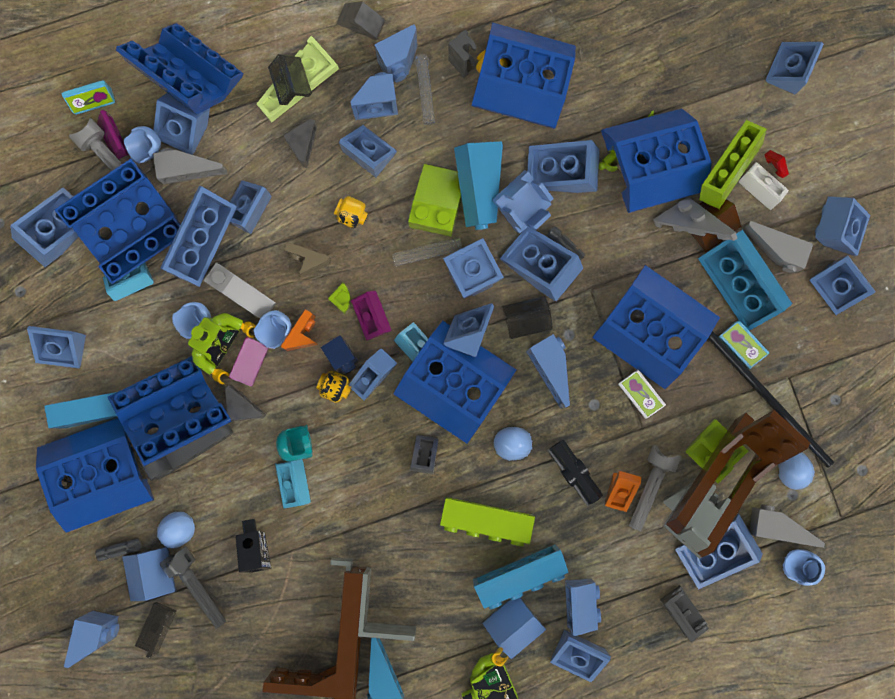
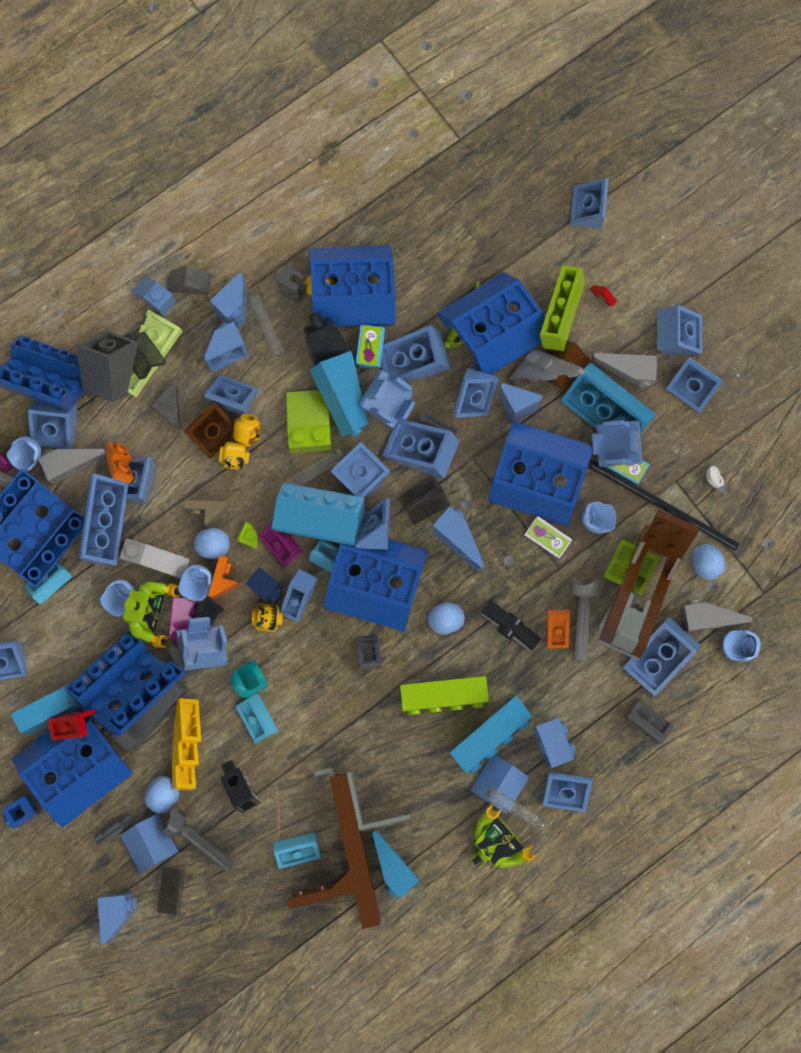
camera: 15 degrees left, 5 degrees down
(21, 504) = (11, 814): none -> blue brick
(100, 435) = (69, 725): none -> red panel
(213, 487) = (184, 747): none -> yellow slope
(232, 182) = (118, 461): none -> orange slope
(250, 78) = (107, 364): none -> dark grey slope
(259, 394) = (202, 645): none -> medium blue panel
(278, 361) = (210, 609): none -> black plate
(291, 627) = (296, 850): none -> medium azure slope
(302, 293) = (211, 543): none -> light blue hair
(322, 24) = (154, 295): none -> medium blue slope
(336, 178) = (210, 430): none -> reddish brown slope
(372, 189) = (247, 429): none -> yellow head
(417, 298) = (318, 513): none -> dark azure slope
(478, 120) = (324, 339): none -> black torso
(523, 143) = (370, 346): none -> slope
(538, 676) = (536, 821): none -> clear axle
(615, 225) = (475, 394): none -> medium blue slope
(656, 247) = (518, 401): none -> medium blue slope
(700, 391) = (599, 517): none -> light blue hair
(745, 322) = (617, 443): none -> medium blue panel
(763, 186) = (598, 318): white slope -> none
(830, 386) = (714, 477): none -> white piece

